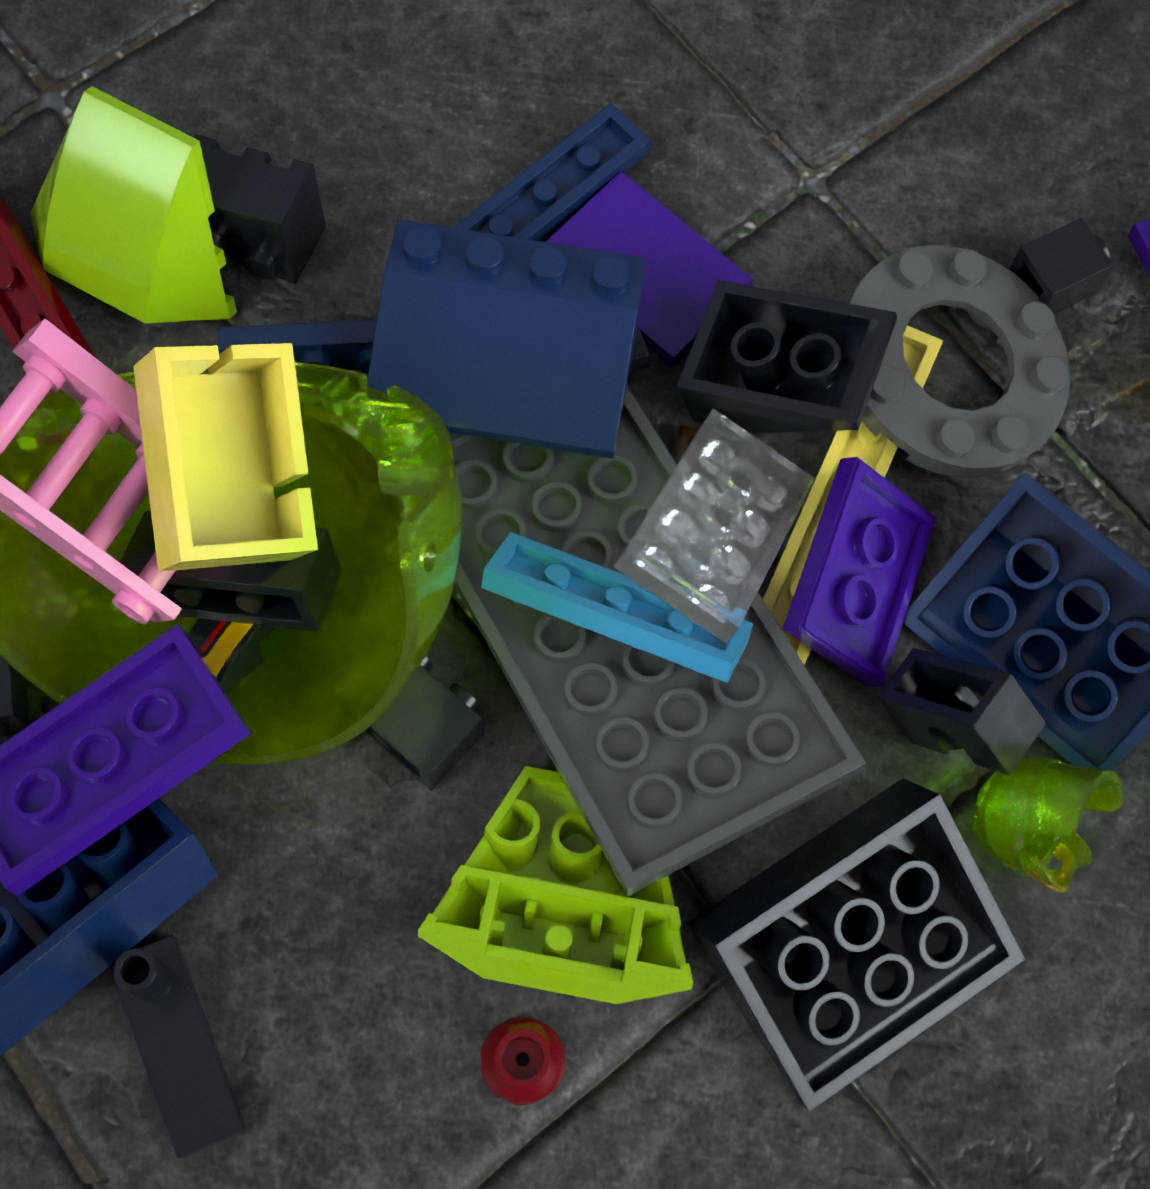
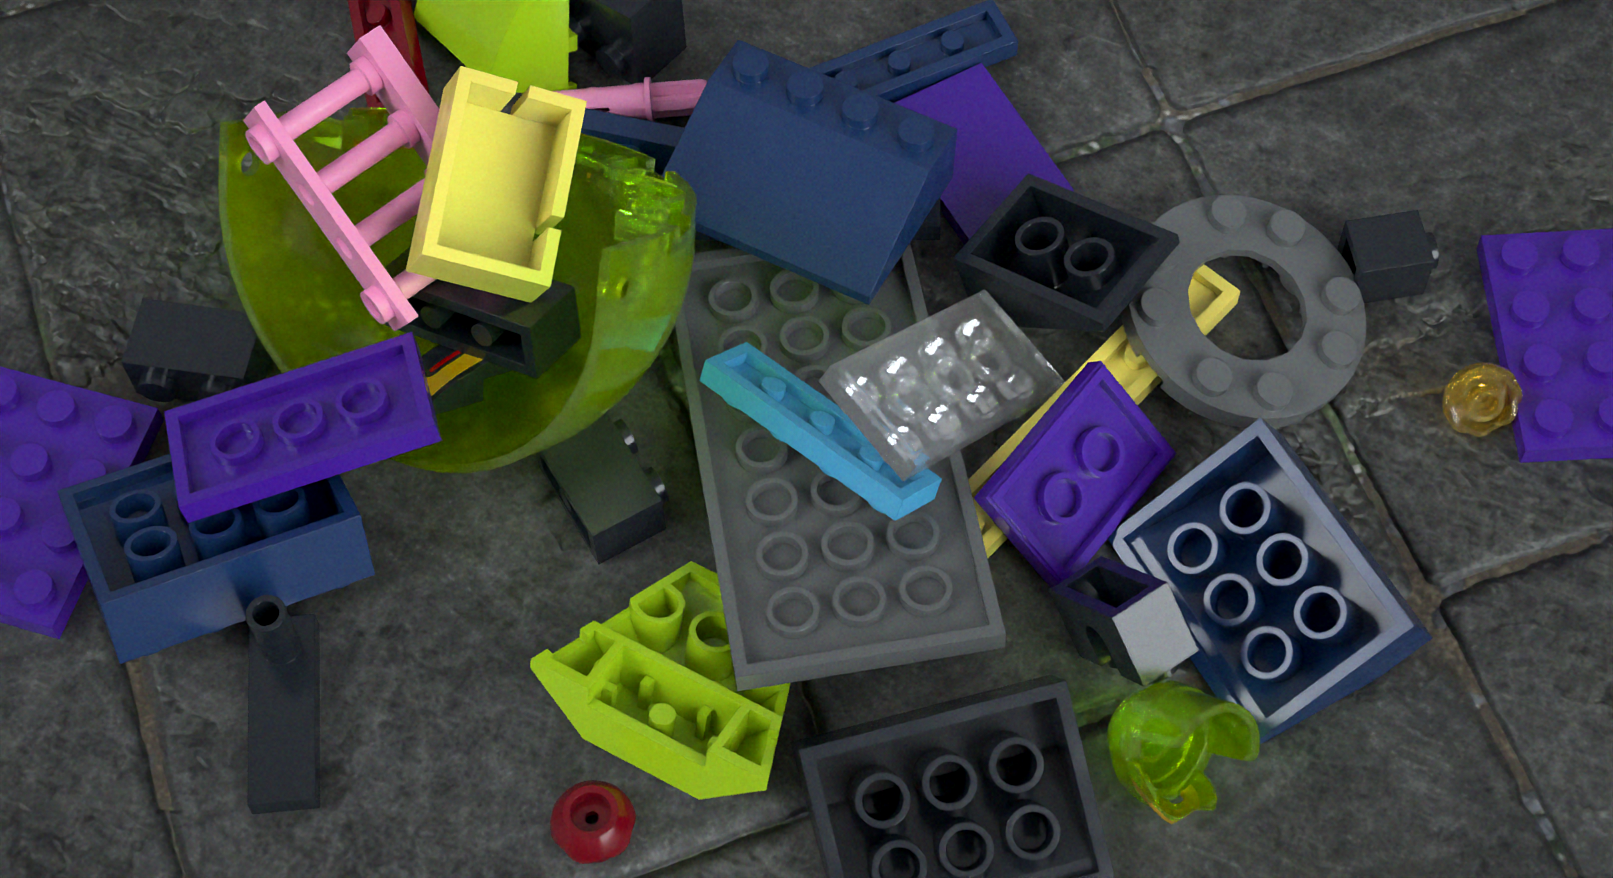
camera: 25 degrees right, 10 degrees down
(293, 301) = (643, 99): none -> bright pink axle

